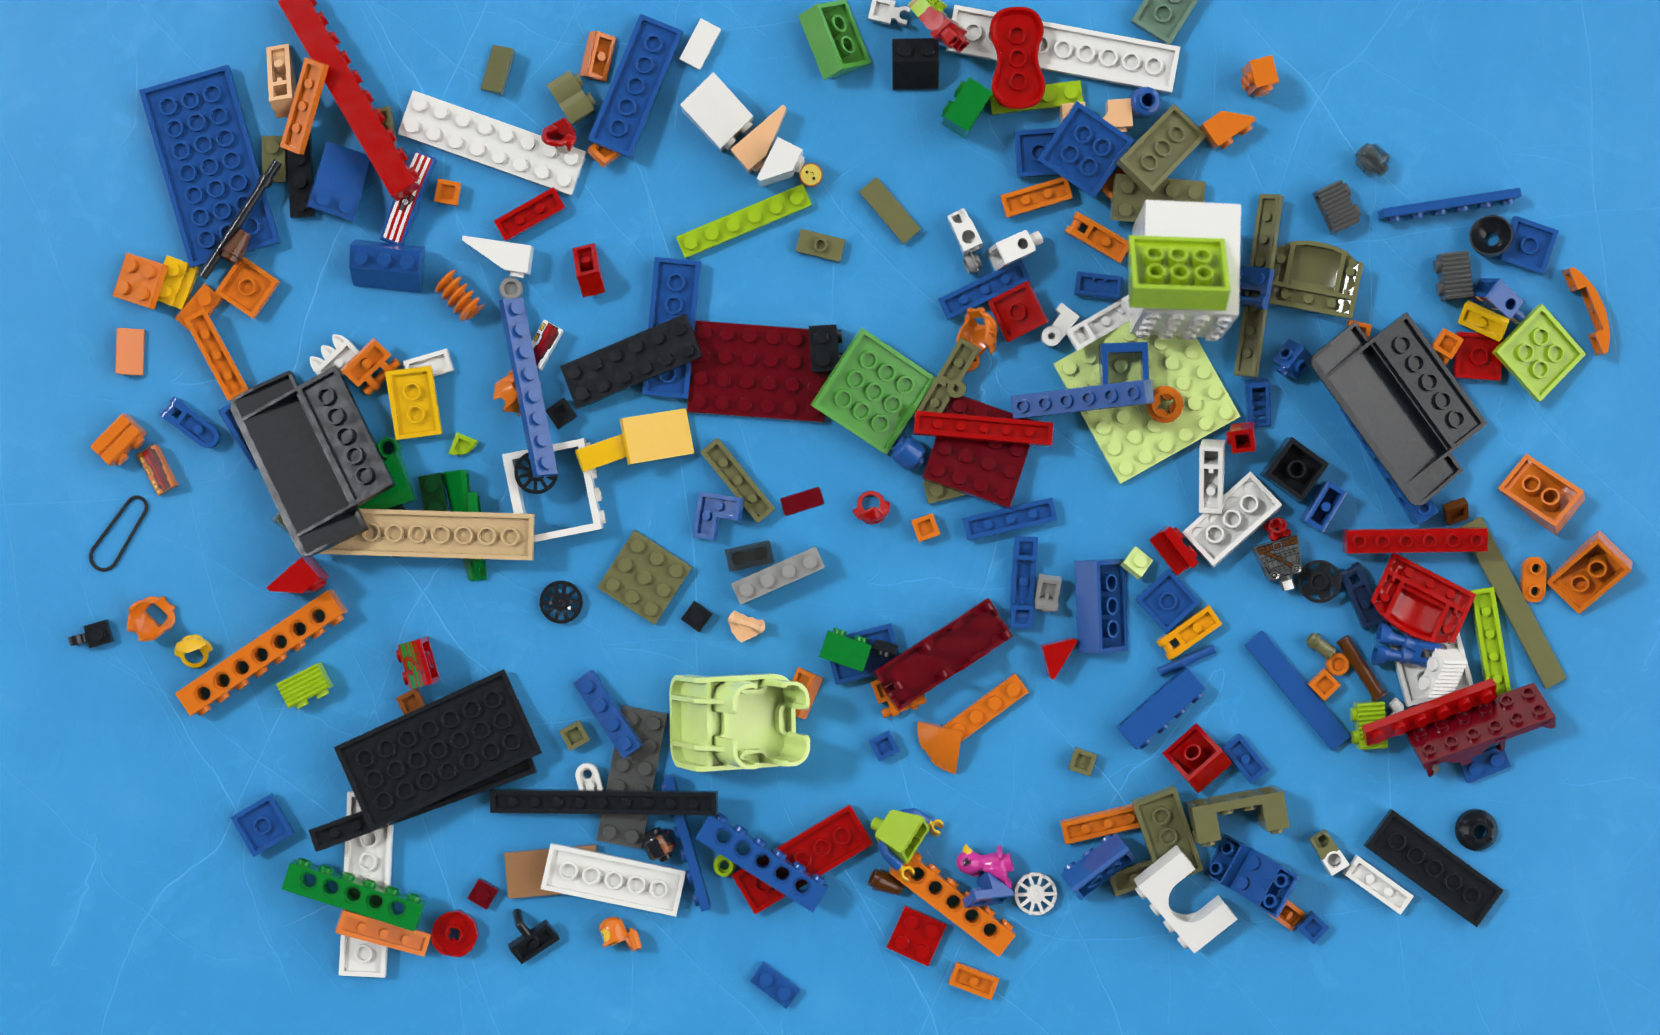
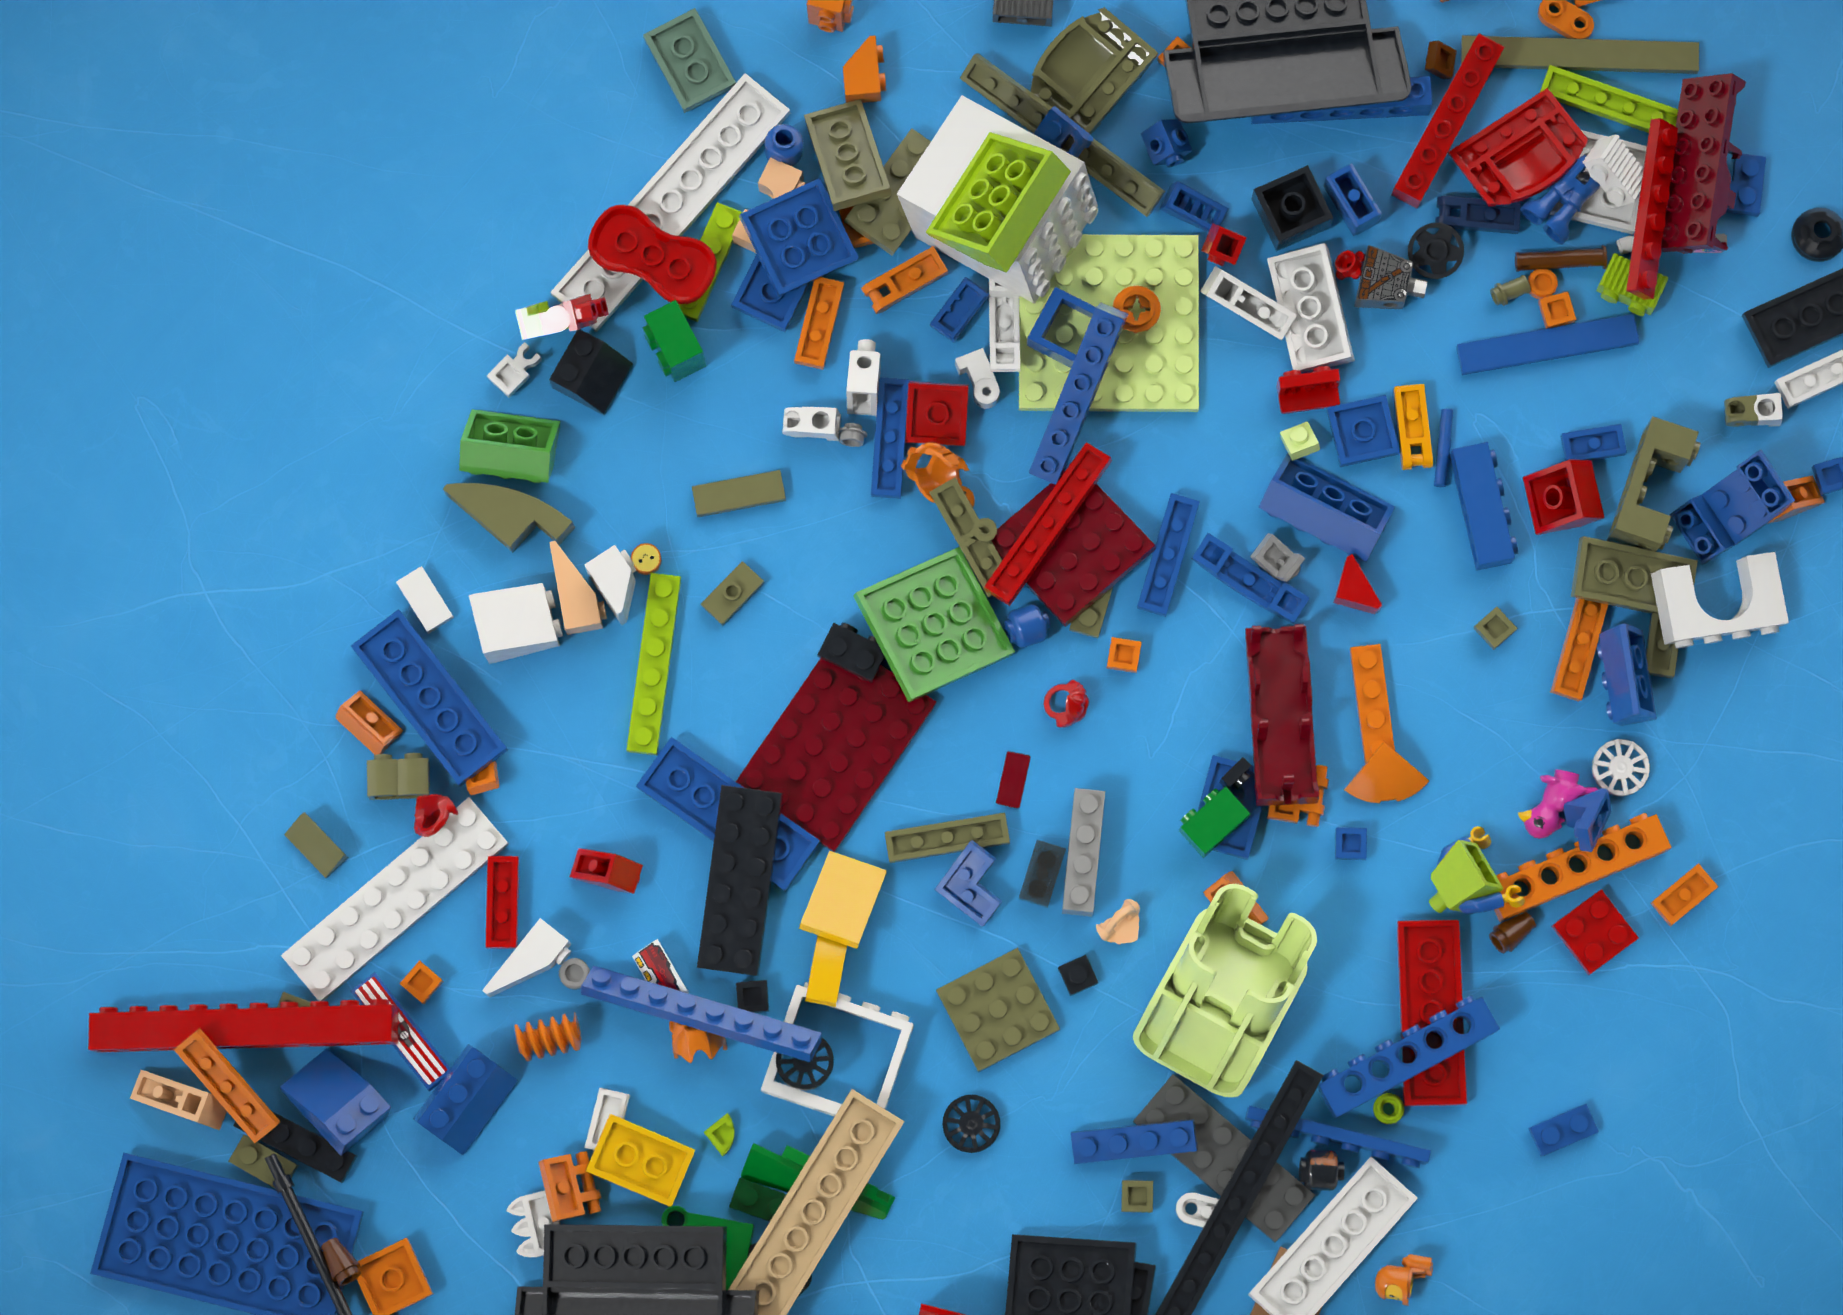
camera: 60 degrees left, 10 degrees down
(788, 65) = (509, 513): none -> olive slope

